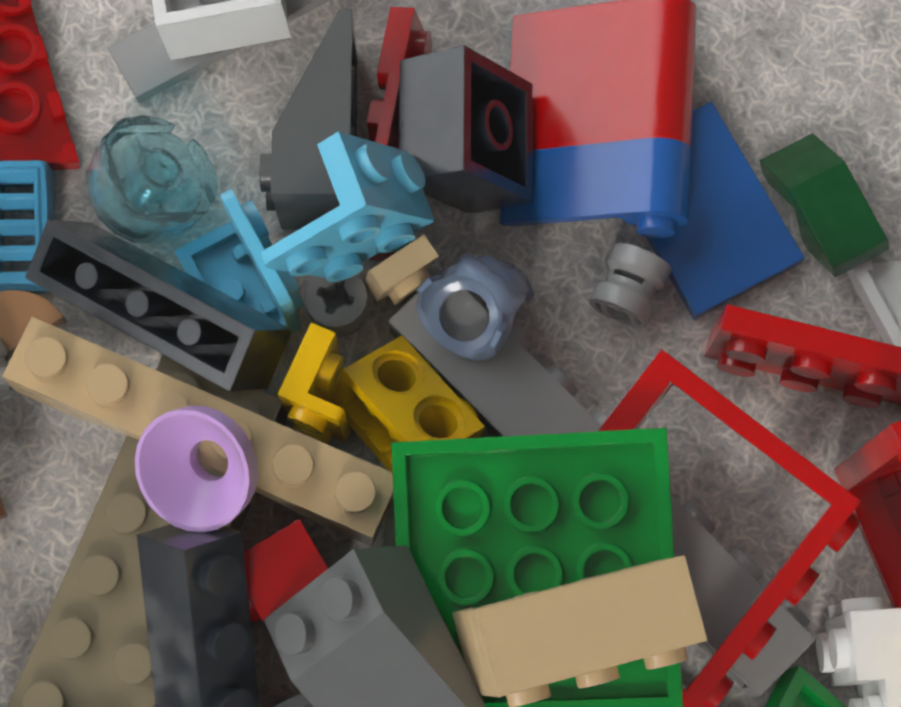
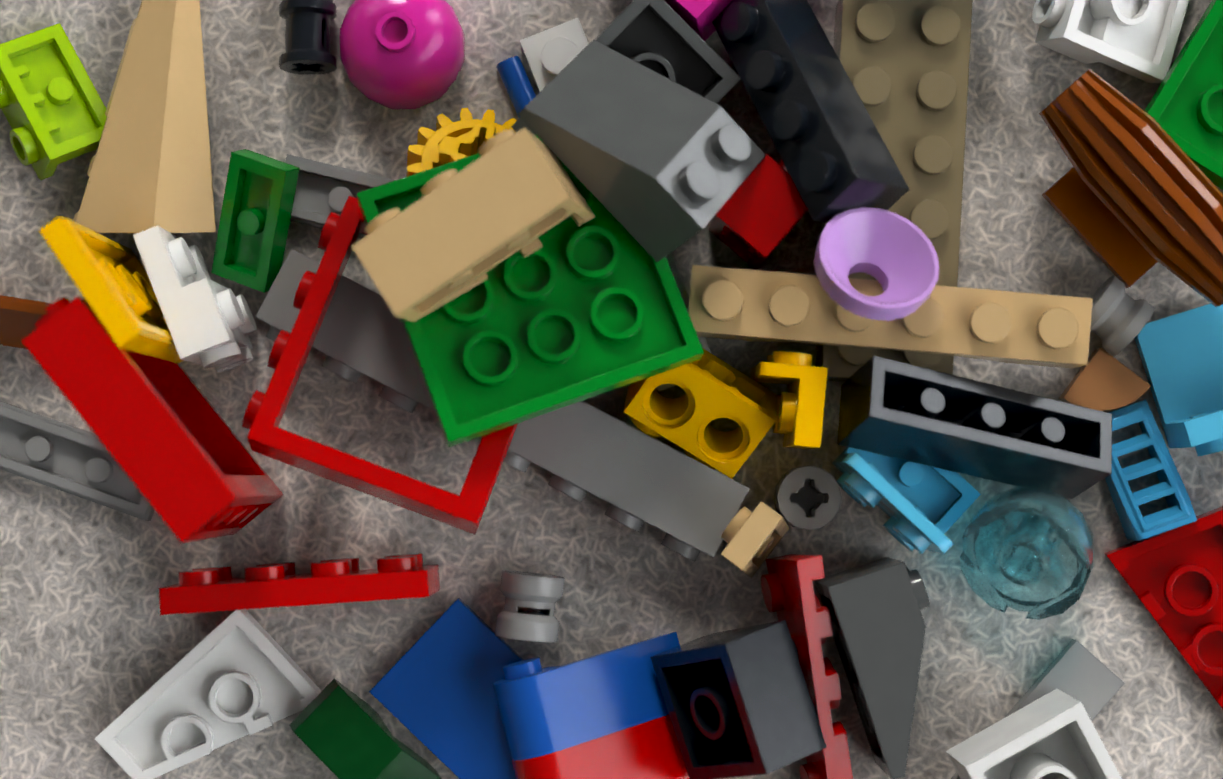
camera: 160 degrees right, 10 degrees up
(376, 214) = (799, 583): medium azure bracket -> none
(497, 283) = (664, 559): sand blue hair -> none

